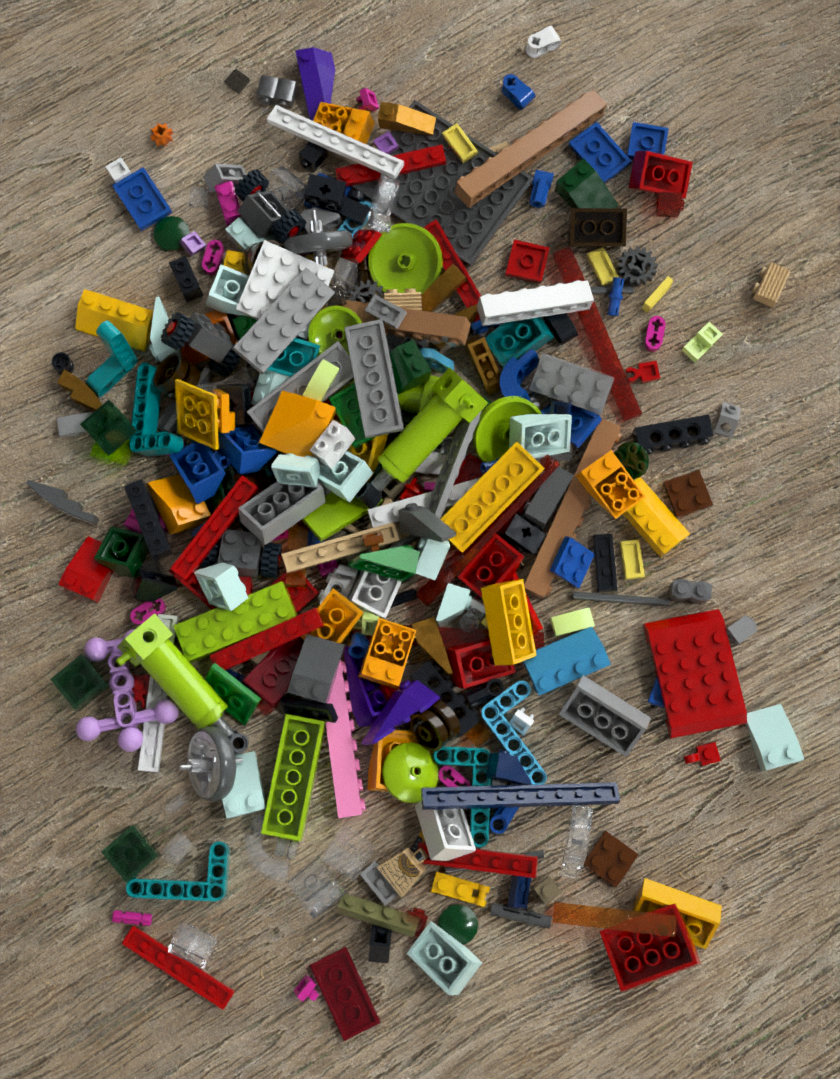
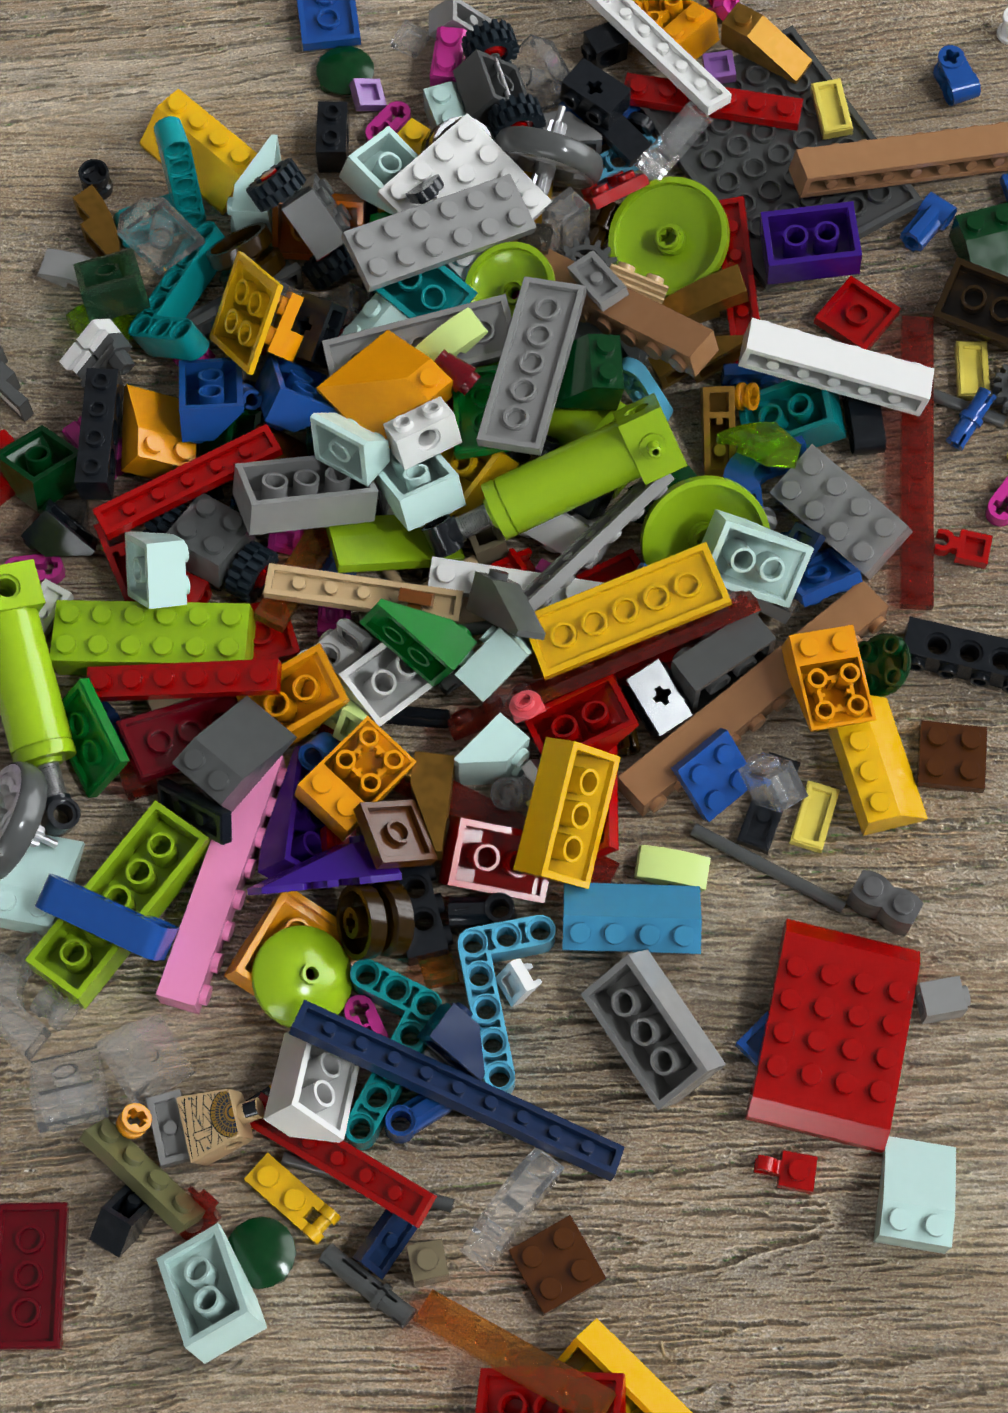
camera: 25 degrees right, 10 degrees down
(119, 385) = (158, 233): none -> clear slope
(121, 469) = (99, 347): none -> hips
(264, 298) = (426, 190): none -> black tile
(294, 792) = (107, 919): none -> blue beam
(334, 399) = (462, 373): none -> dark red cone
(366, 889) = (134, 1111): none -> light orange bush
(425, 675) = (395, 834): none -> reddish brown plate
(458, 572) = (526, 705): none -> coral plate
(486, 232) = (810, 242): none -> dark purple brick
(491, 337) = (747, 396): none -> light orange bush
(515, 363) = (764, 443): none -> clear neon green slope
(607, 555) = (772, 781): none -> clear brick

